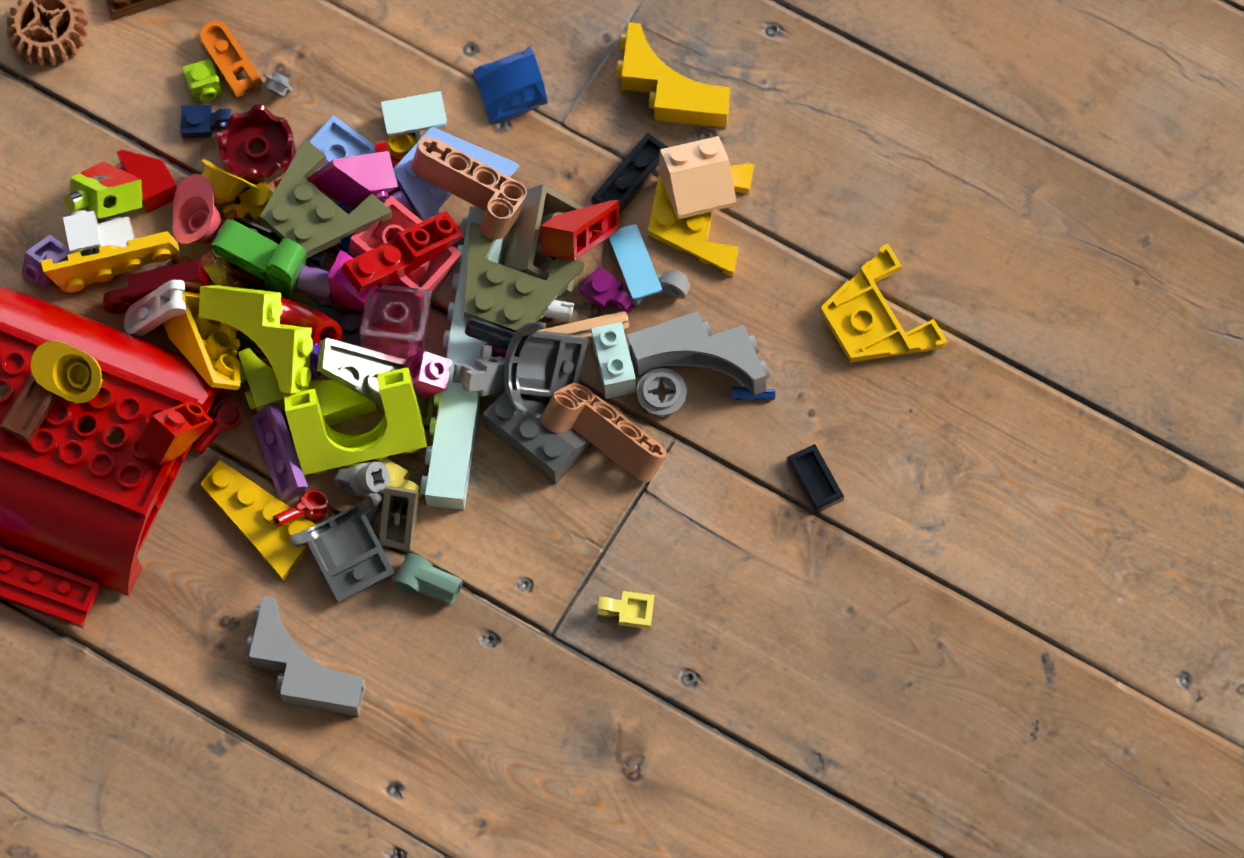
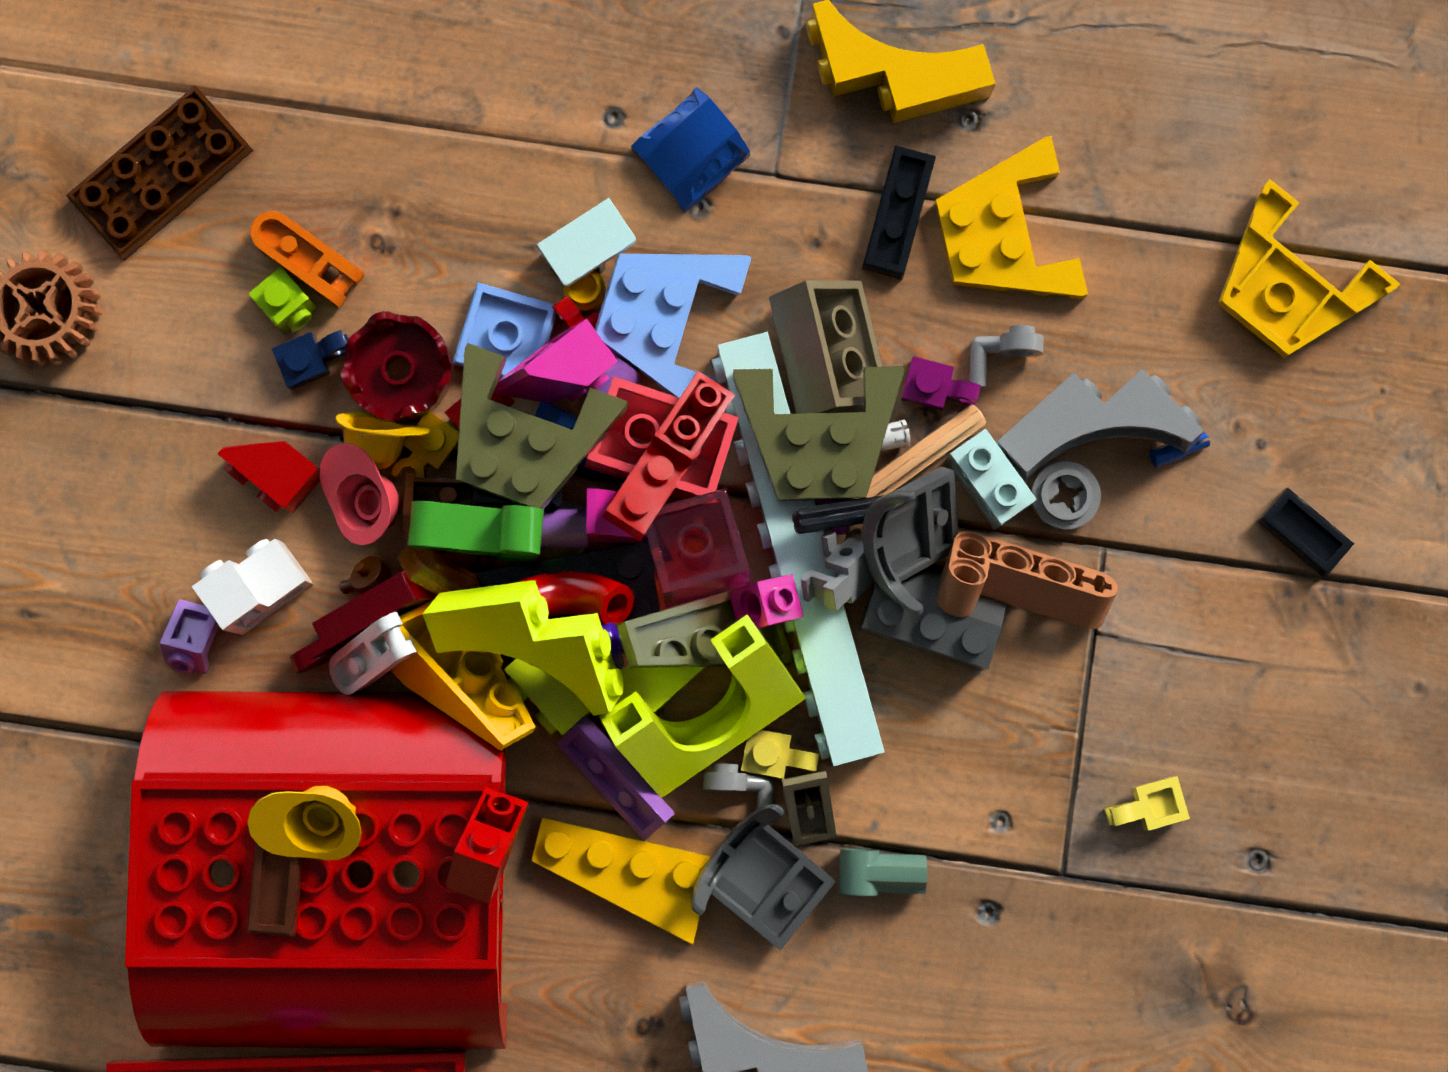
camera: 25 degrees left, 15 degrees up
(104, 191) = (226, 519): lime torso -> none
(109, 261) = (279, 610): yellow wing -> none
(226, 415) = (523, 760): red plate -> none
(276, 83) = (384, 268): light grey plate -> none
(312, 504) = (689, 832): red plate -> none
(369, 478) = (753, 775): light grey wheel -> none
(473, 182) = (714, 315): nougat beam -> none
(579, 230) = (875, 326): red slope -> none
(635, 262) = (957, 332): medium azure piece -> none
(697, 177) = (996, 188): light nougat slope -> none

